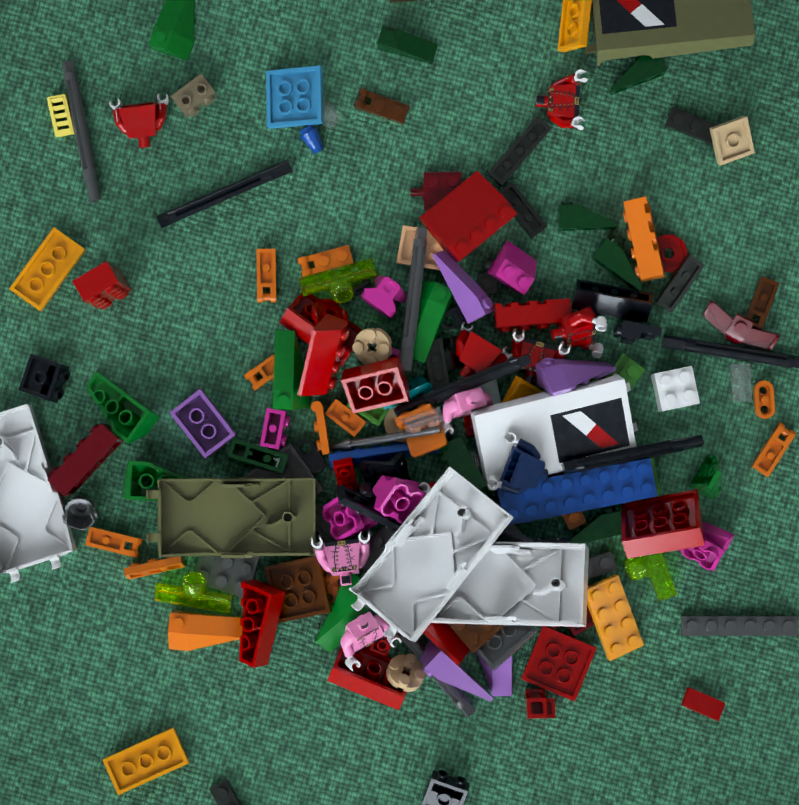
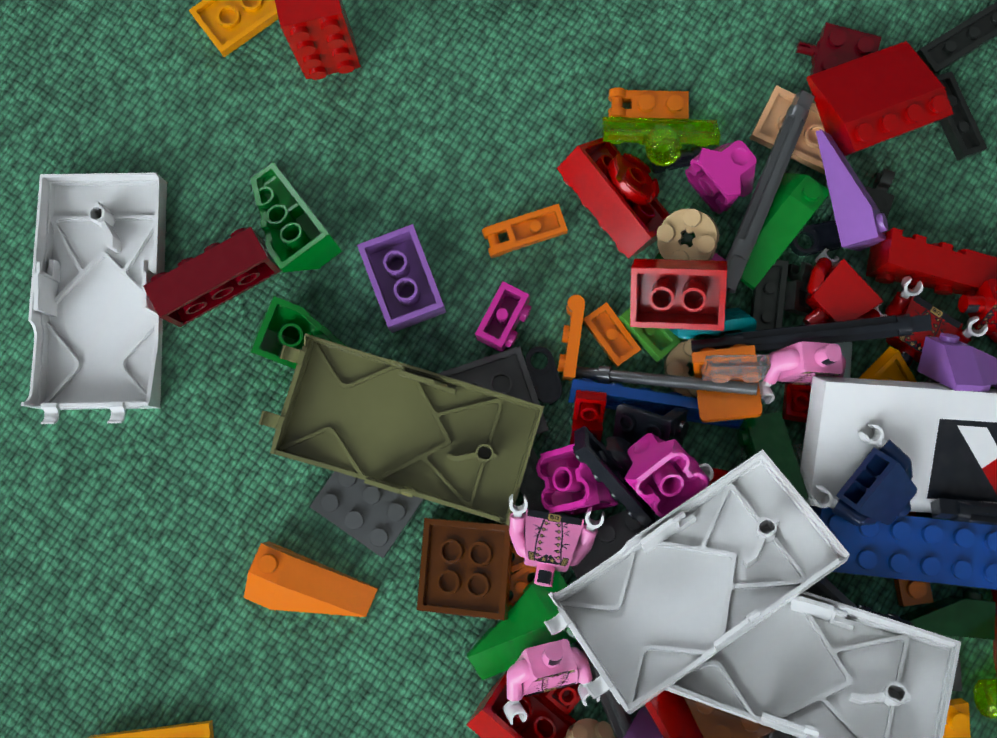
camera: 20 degrees right, 5 degrees down
(44, 378) = (196, 148): black plate -> none
(80, 513) = (179, 353): dark grey cap -> none
(113, 541) = (214, 411): orange plate -> none
(153, 566) = (260, 467): orange plate -> none
(193, 594) = (306, 527): clear neon green plate -> none
(256, 456) = (464, 349): dark green slope -> none
(259, 621) = (391, 600): red wedge -> none
(266, 275) = (558, 98): orange plate -> none
(287, 373) = (548, 248): green wedge -> none
(324, 356) = (612, 228): red slope -> none
(514, 268) = (921, 194): dark pink slope -> none

